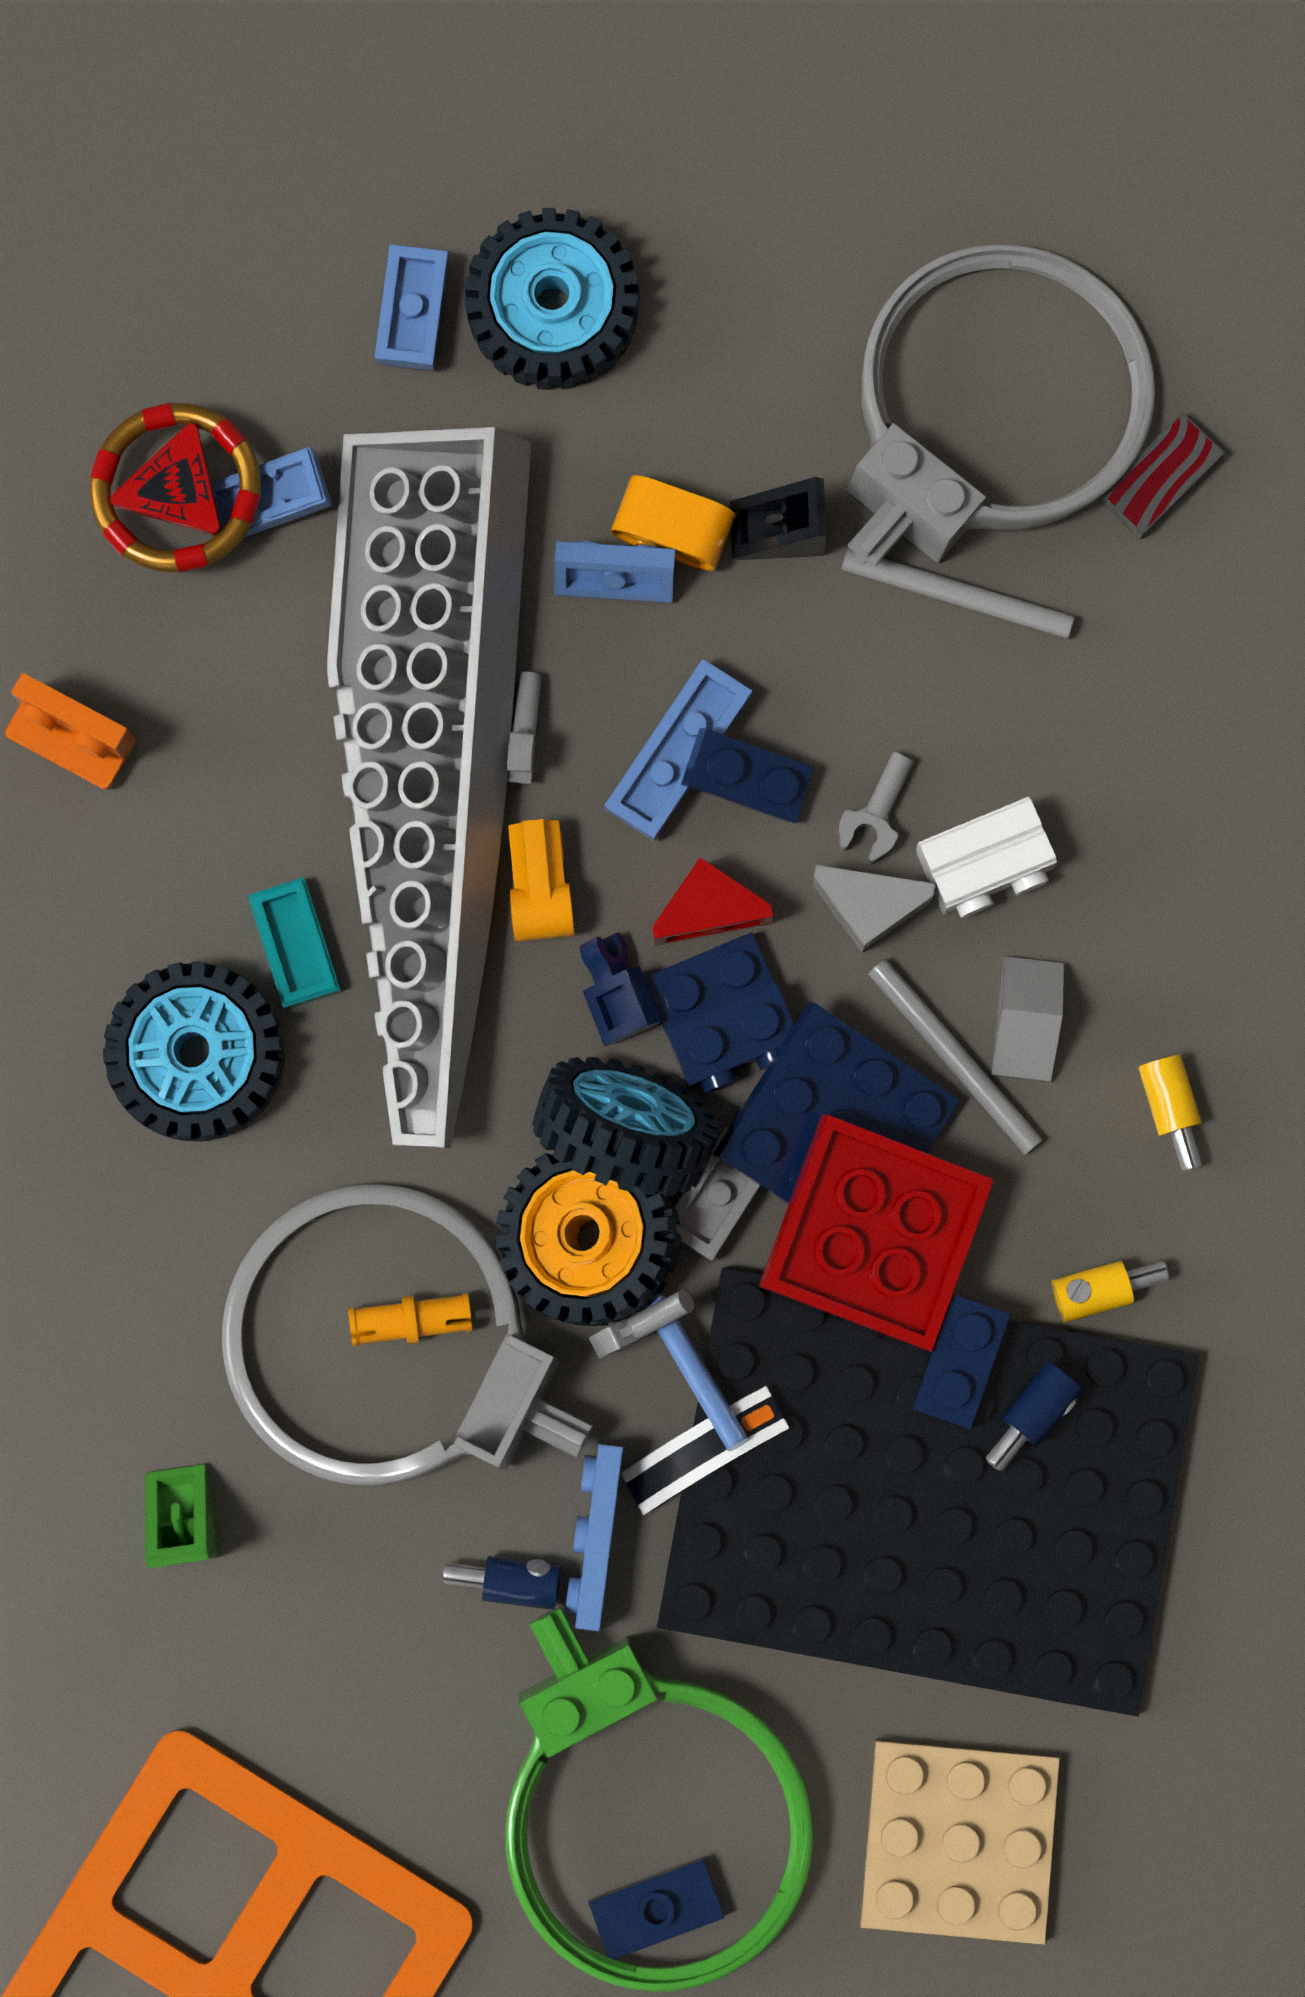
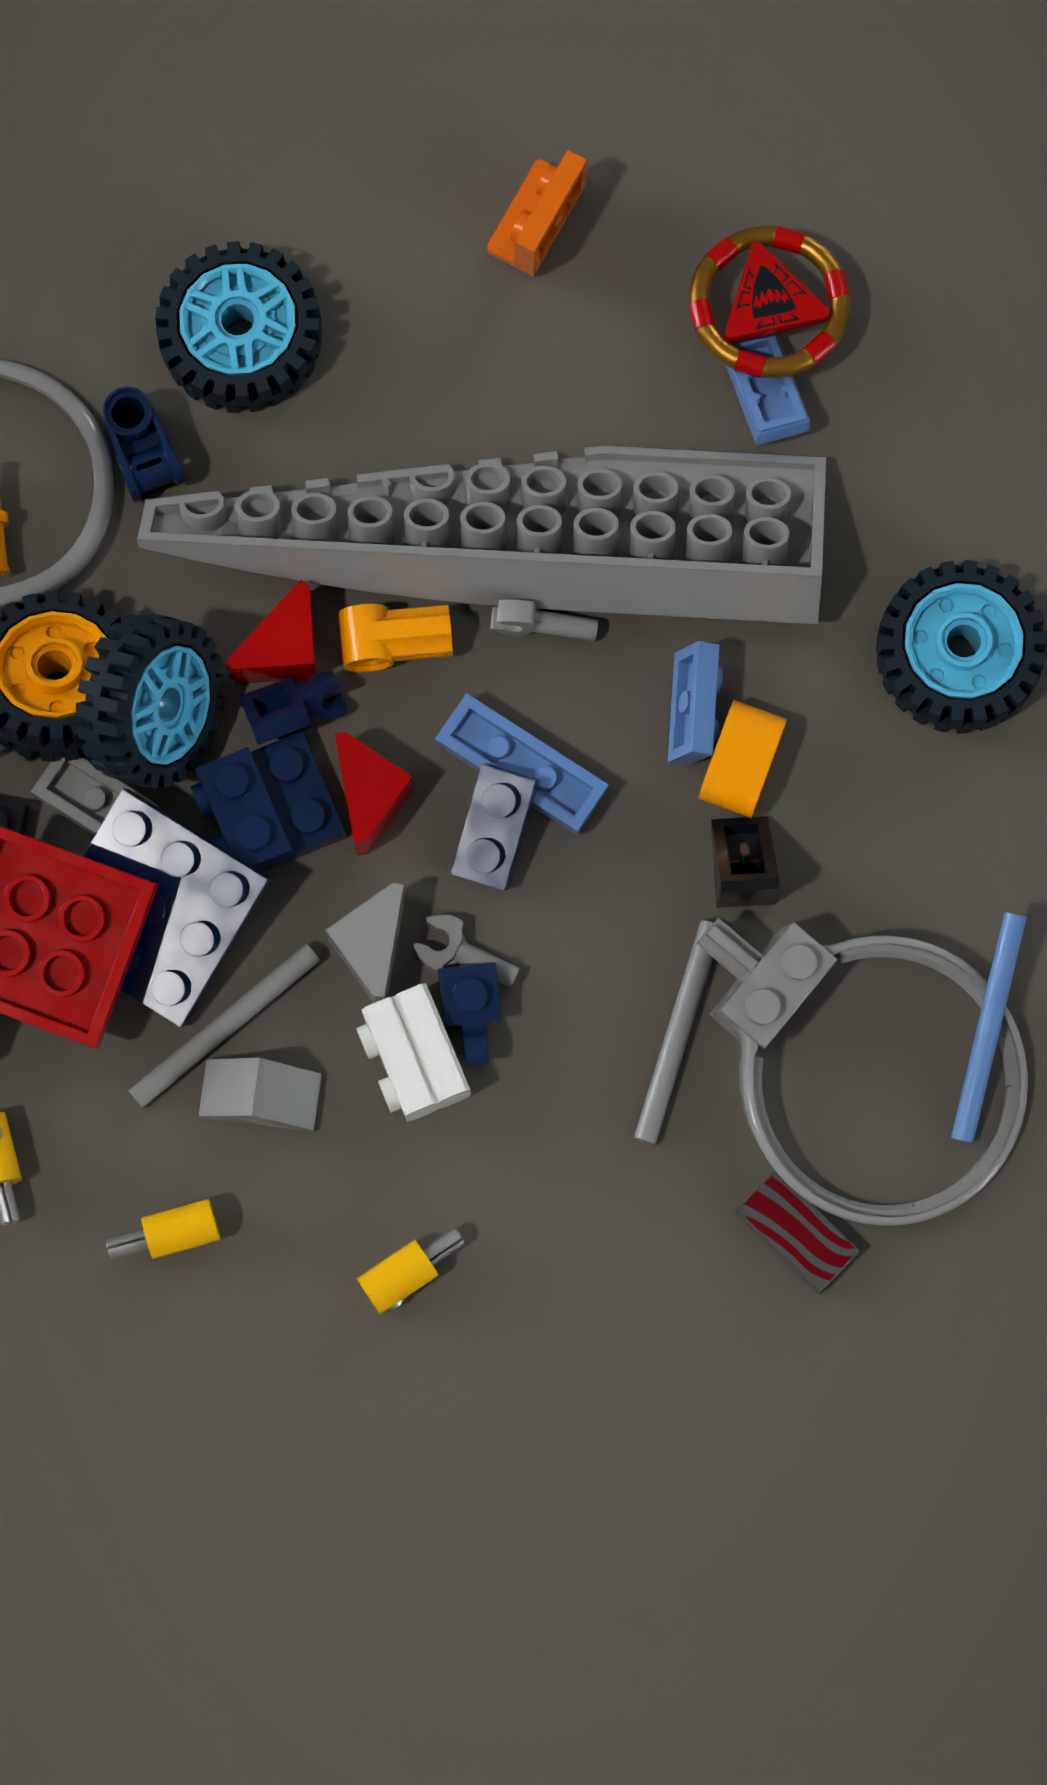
camera: 85 degrees right, 5 degrees down
(294, 943) = (342, 418): teal tile -> none
(331, 1153) = (141, 451): none -> dark blue piece
(411, 307) = (950, 518): medium blue plate -> none
(548, 997) = (280, 644): none -> red slope
(931, 801) = (470, 1000): none -> dark blue plate
(954, 278) = (988, 1027): none -> medium blue bar
(1209, 864) = (406, 1270): none -> yellow piece

